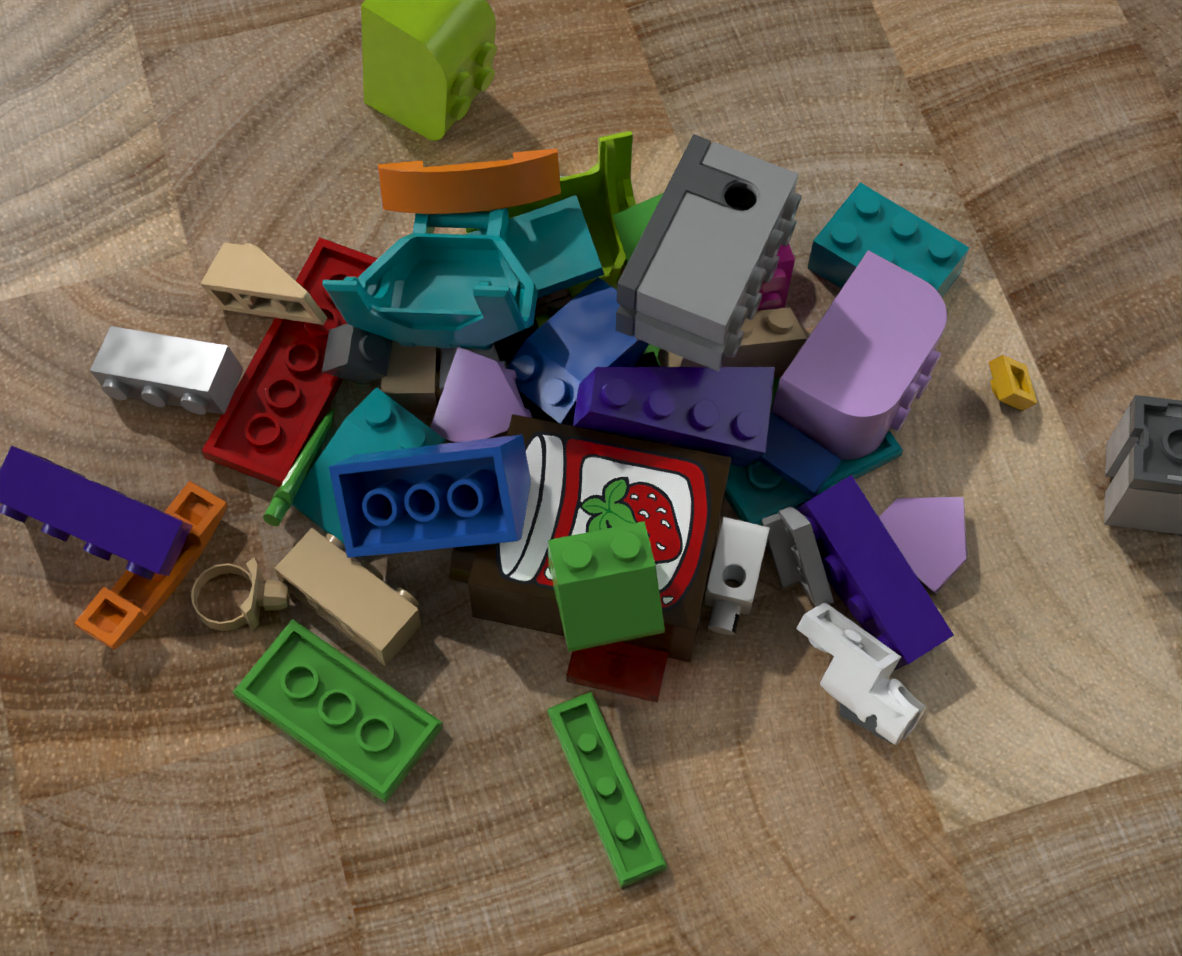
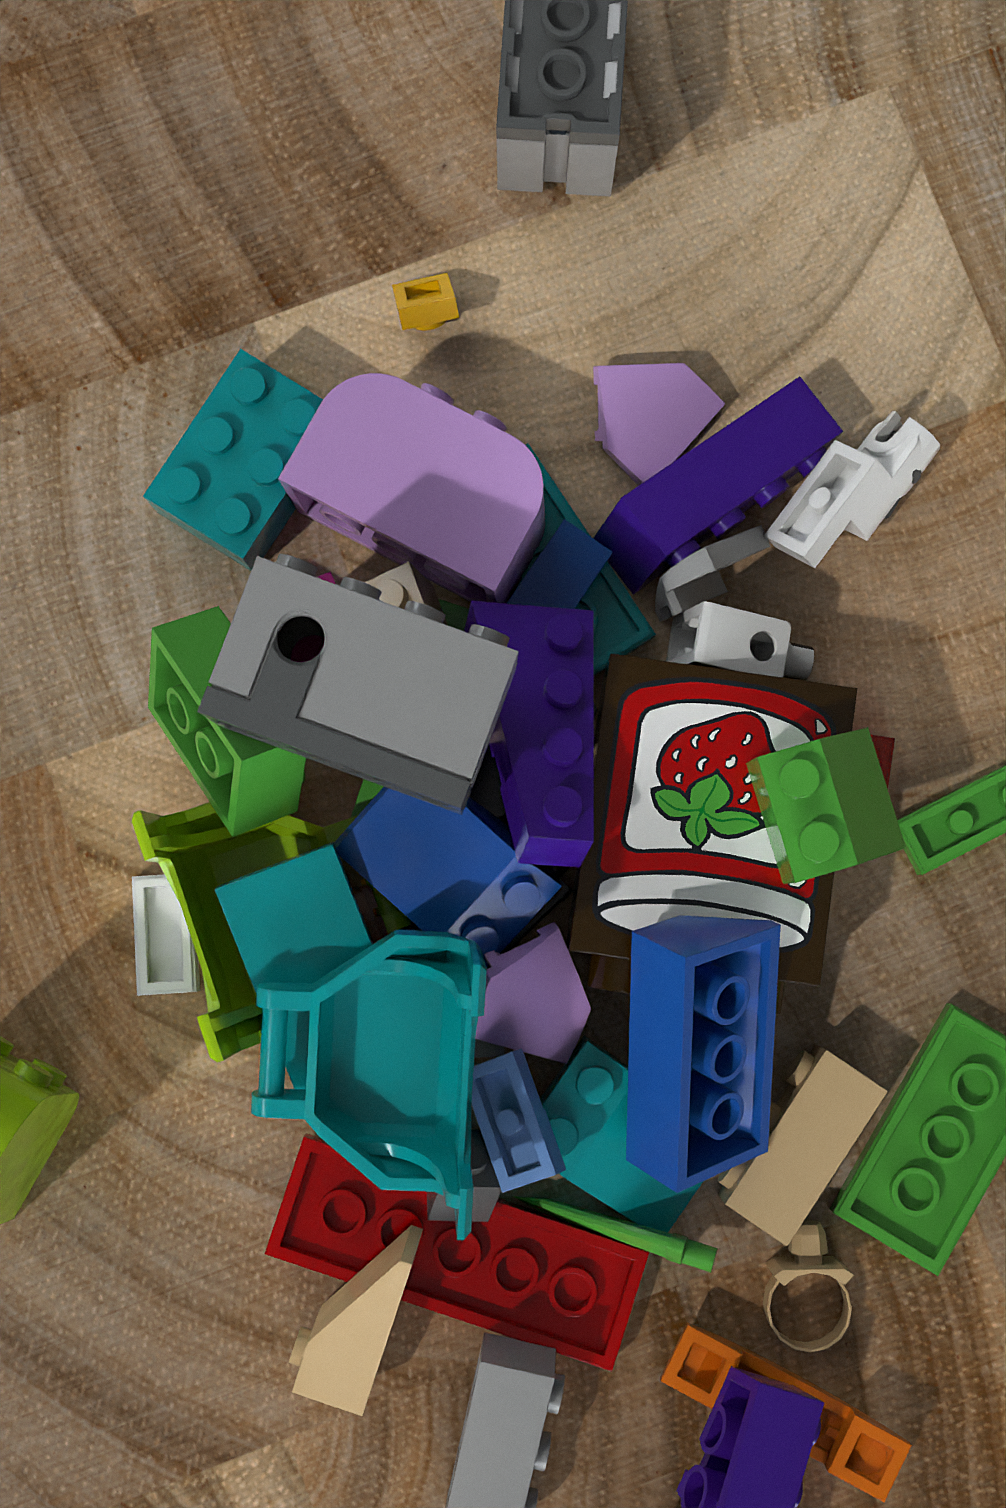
camera: 90 degrees left, 20 degrees up
(394, 373) = (514, 1122): none -> medium blue plate
(470, 186) = (240, 1039): orange slope -> none

